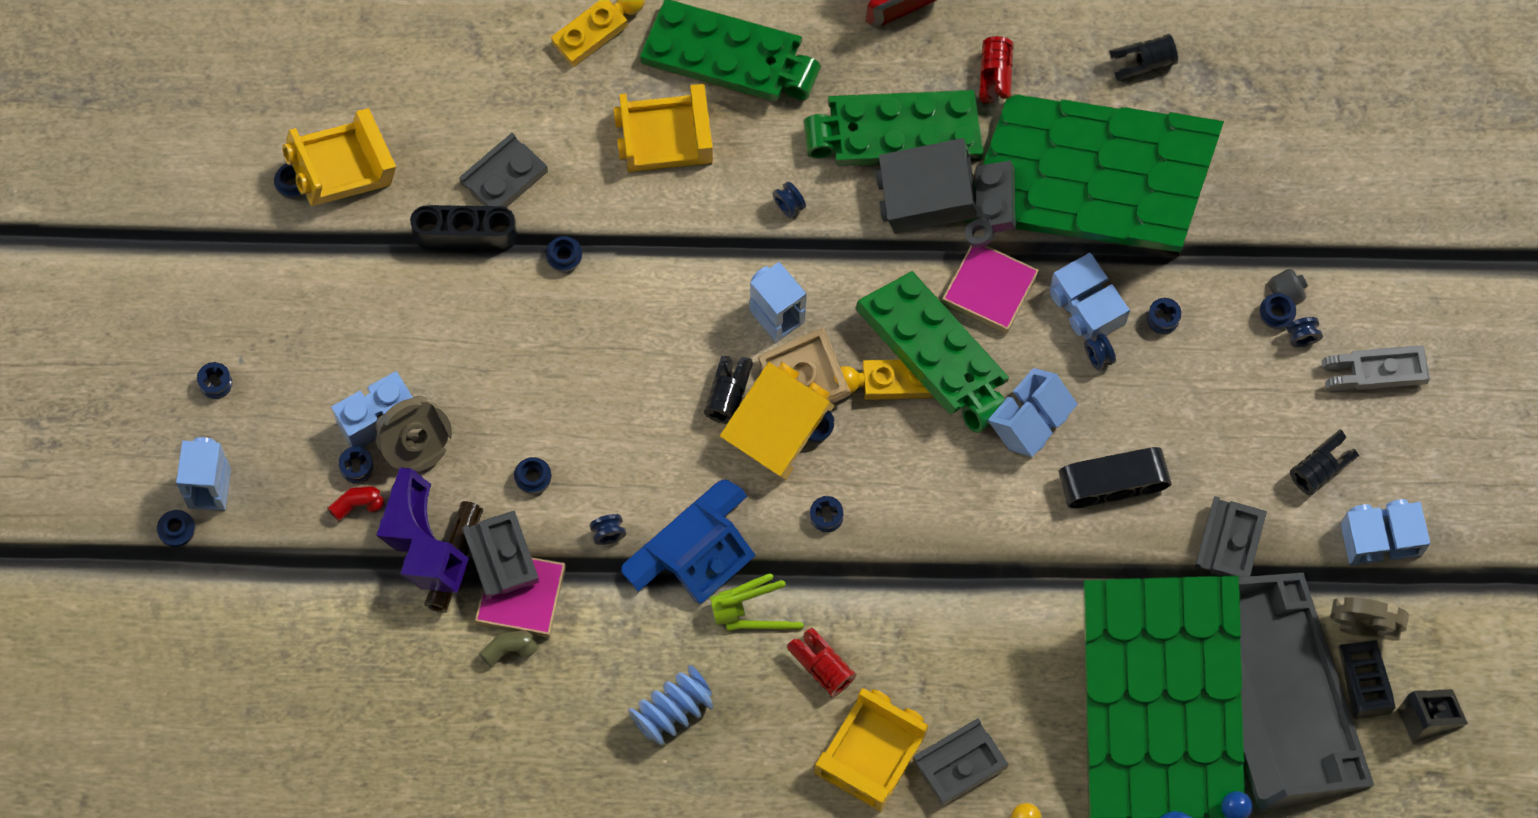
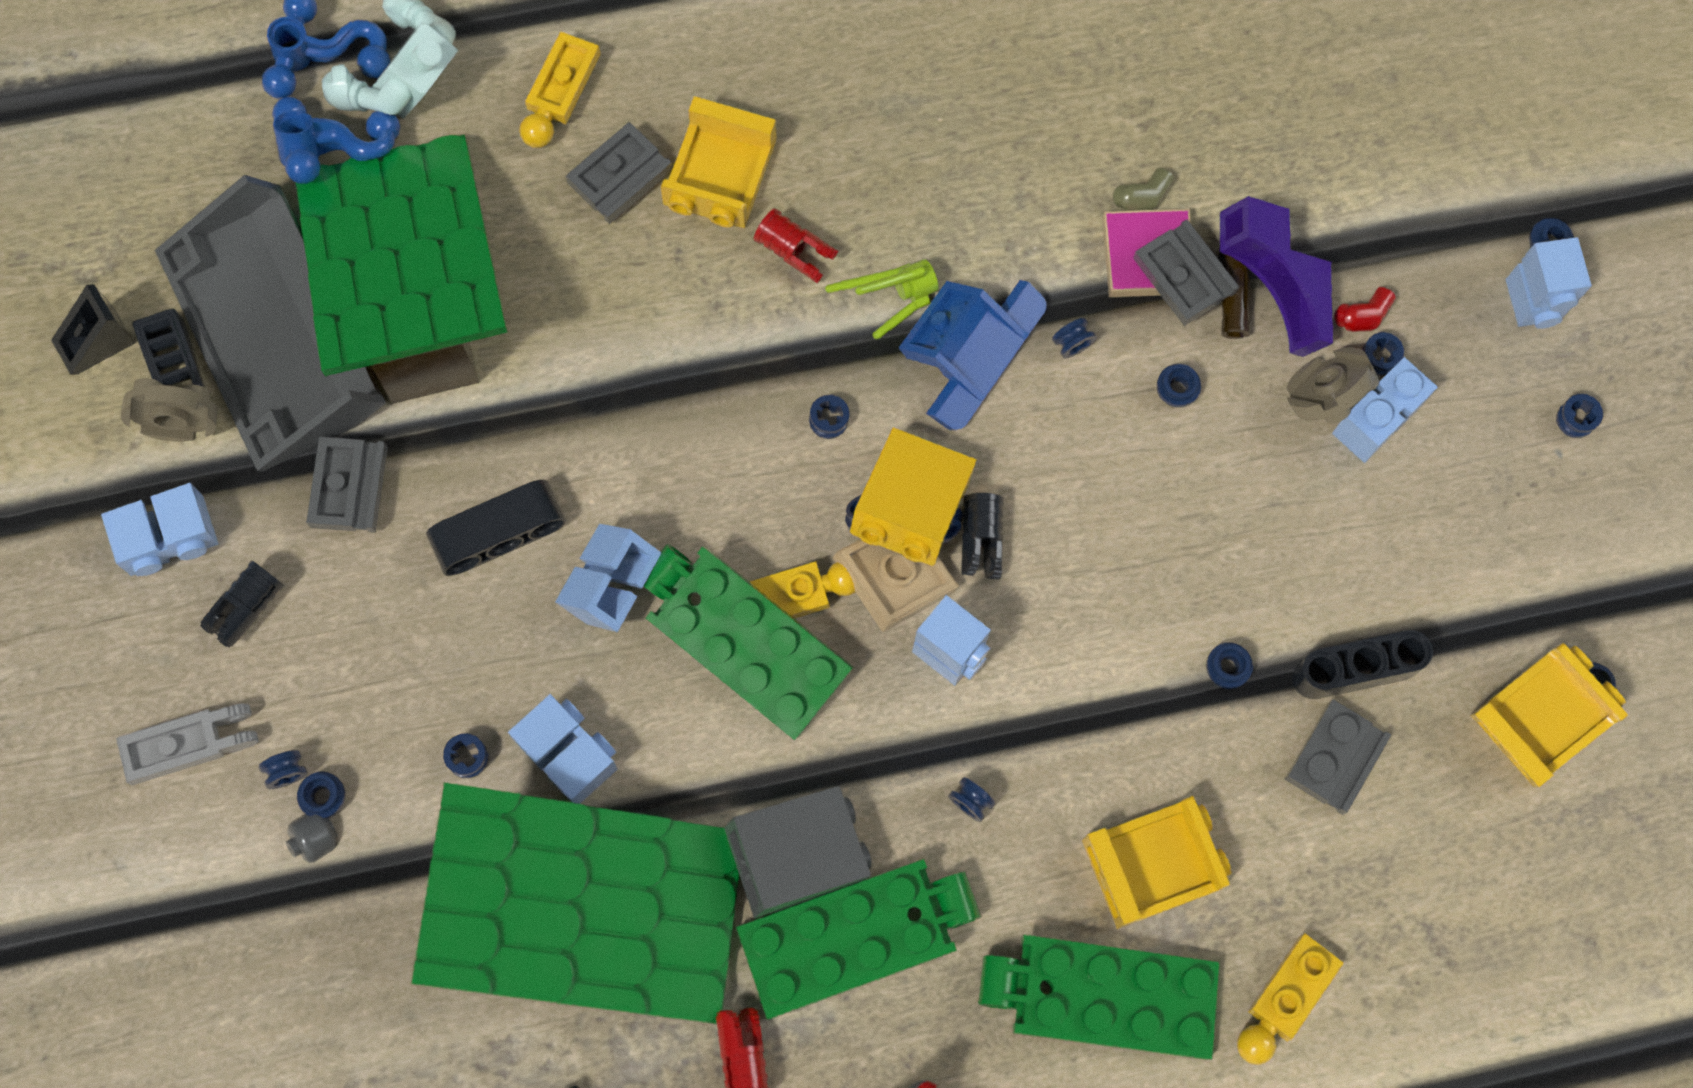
camera: 165 degrees right, 5 degrees up
(672, 706) = (944, 156): light blue piece -> none
(990, 287) = (692, 745): dark pink tile -> none
(993, 202) = (707, 843): dark grey hinge -> none
(1100, 351) = (538, 682): dark blue bush -> none

